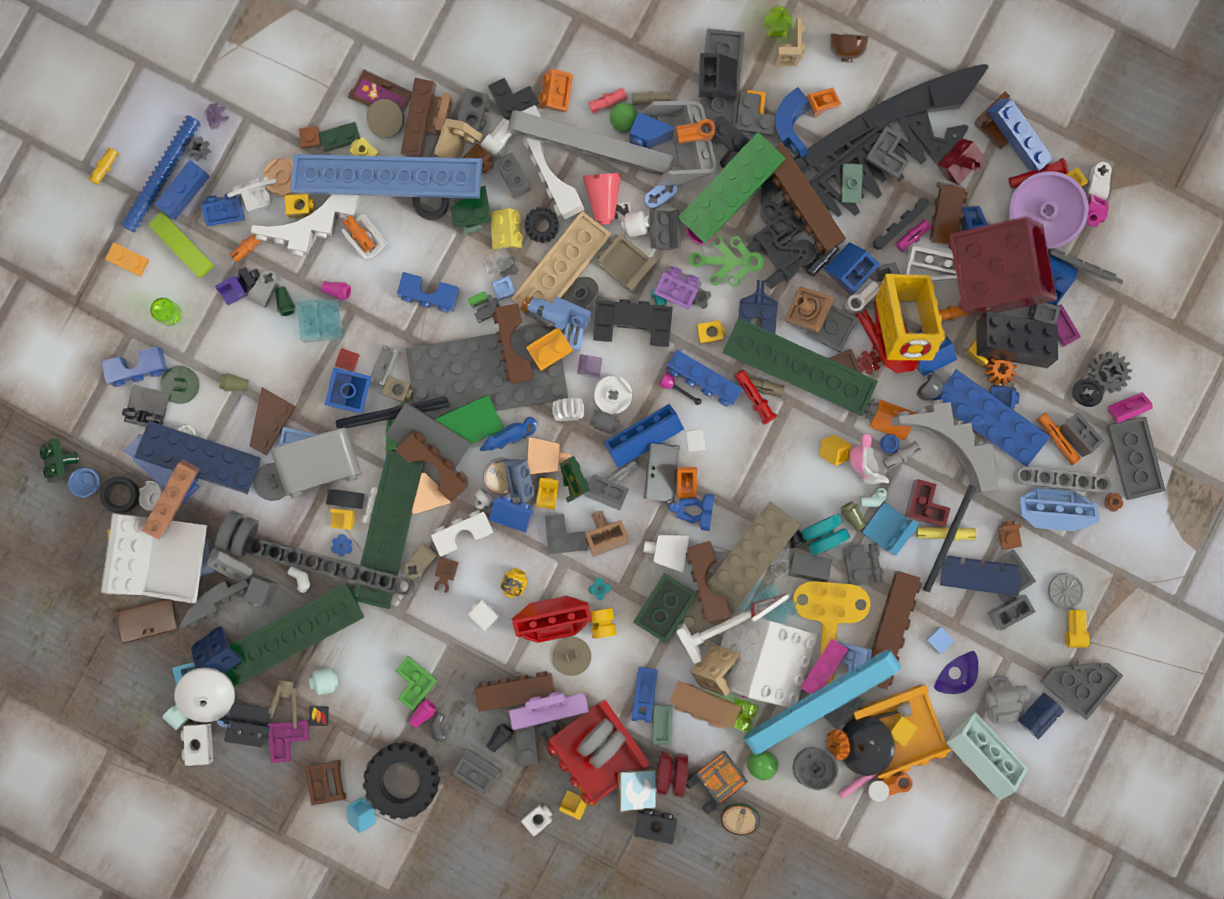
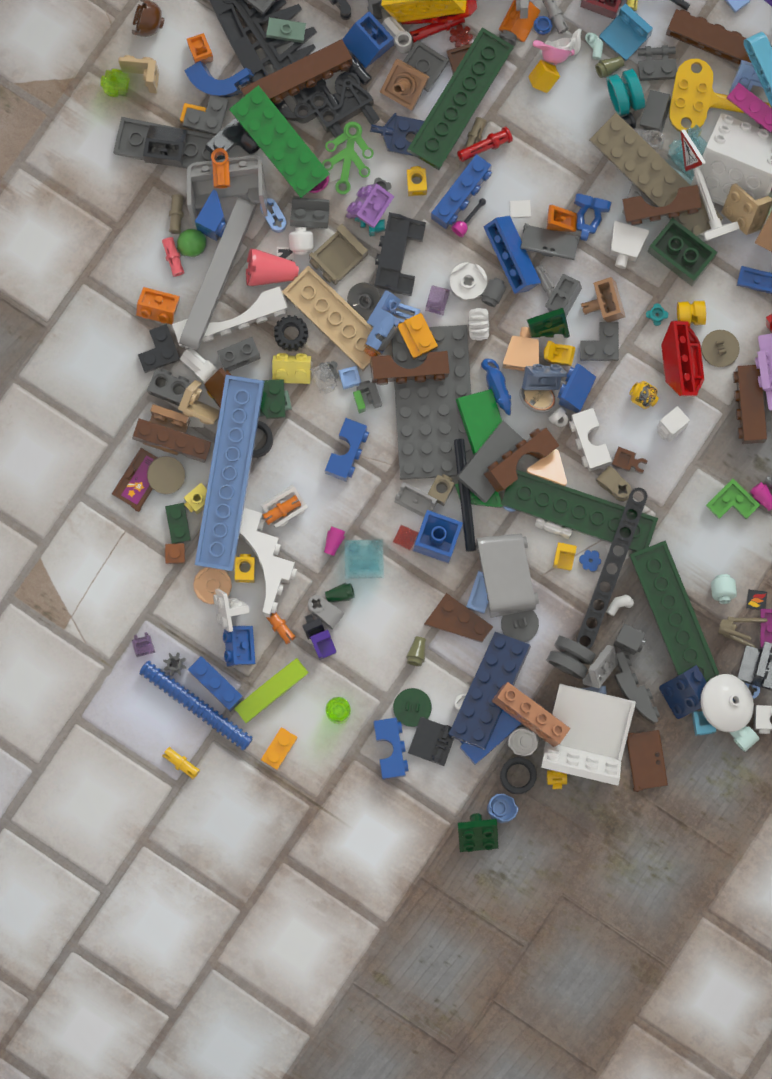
camera: 80 degrees left, 5 degrees down
(345, 498) = (545, 548): black tyre -> none

